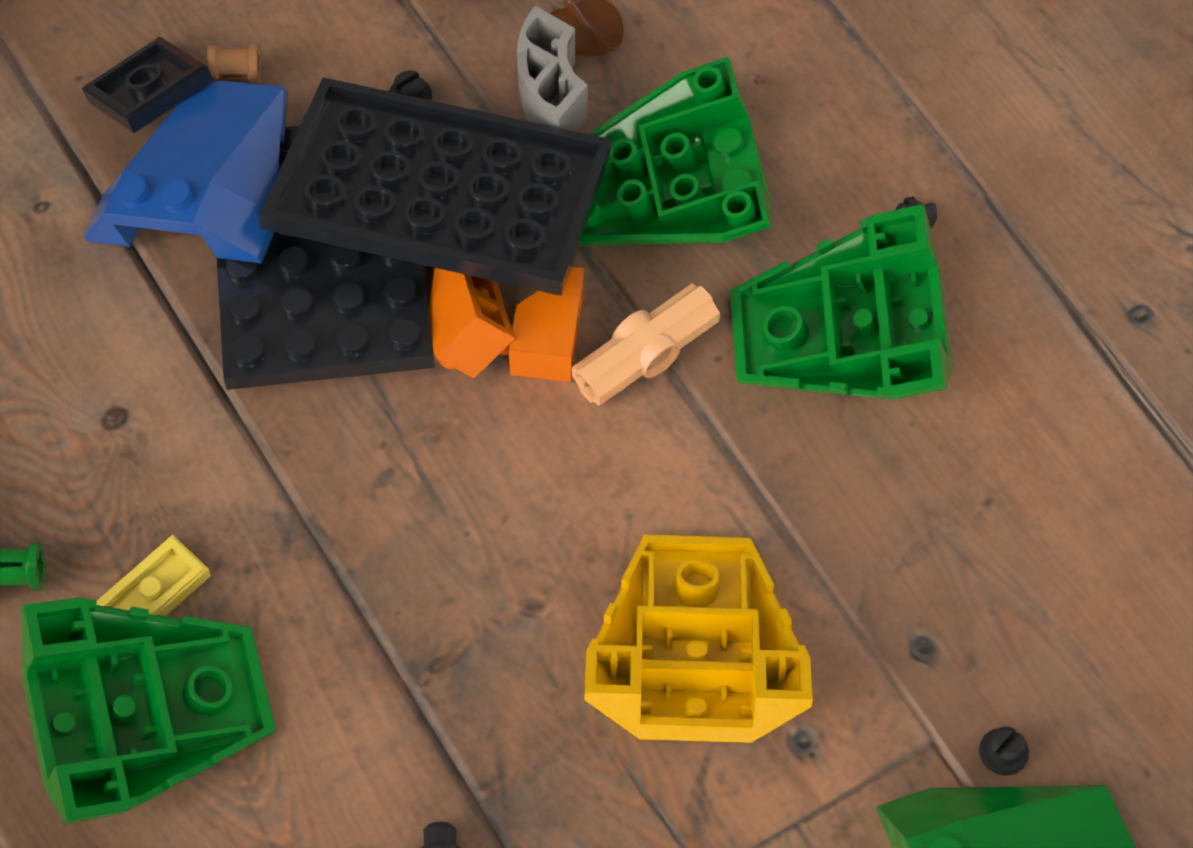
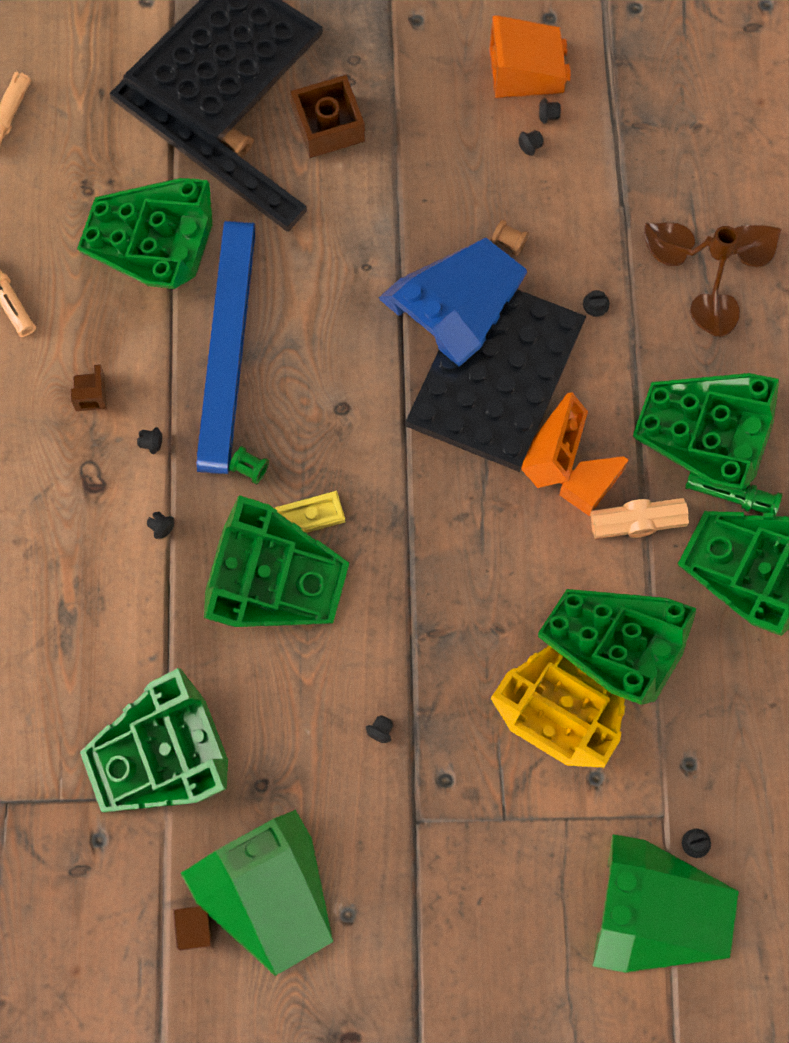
camera: 30 degrees right, 10 degrees up
(147, 84) = (456, 226): black tile -> none
(438, 185) = (576, 372): black plate -> none
(546, 81) = (670, 345): light grey brick -> none
(720, 518) = (620, 639): none -> green wedge
(783, 246) = (750, 498): none -> green pin

